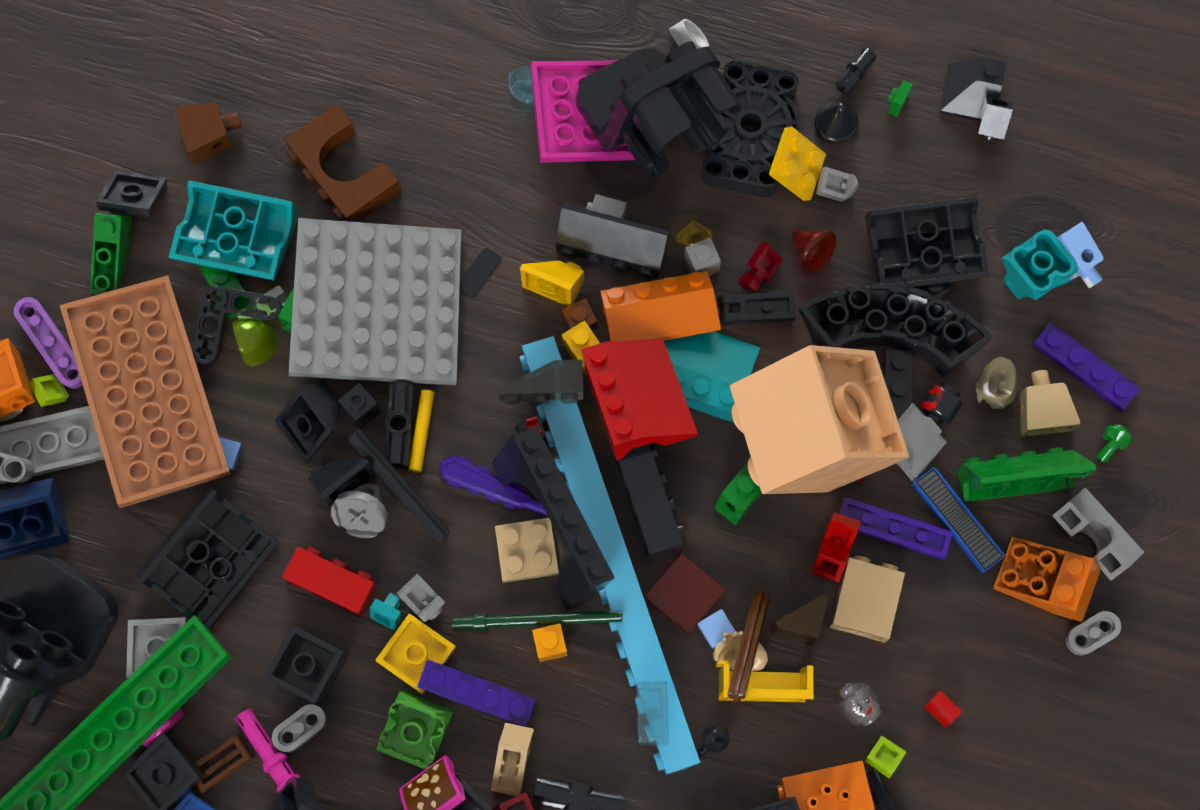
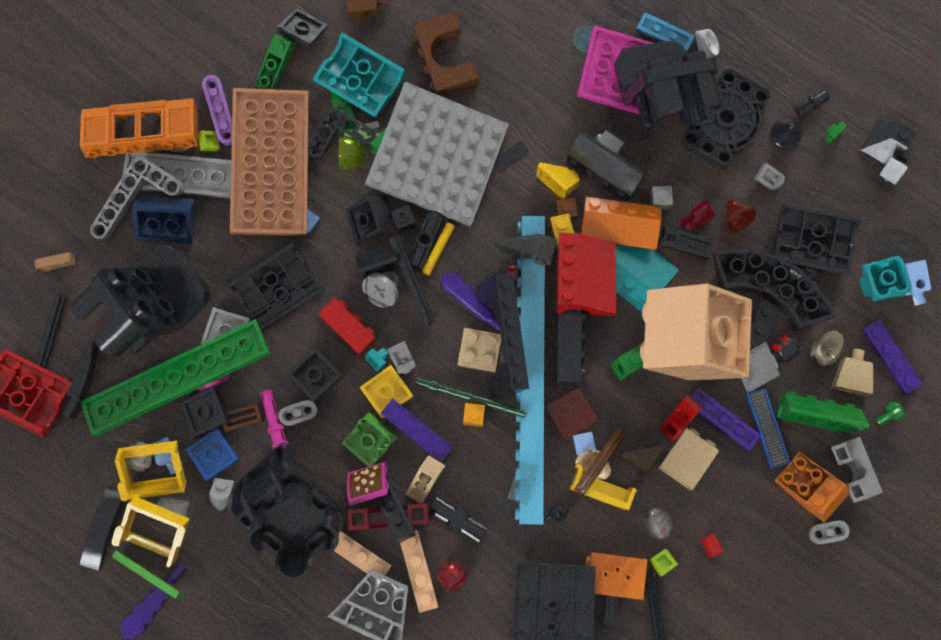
camera: 20 degrees right, 5 degrees up
(624, 41) = (663, 31): none -> dark azure plate
(693, 234) = (661, 179): clear yellow tile -> none
(797, 163) = (748, 154): yellow plate -> none

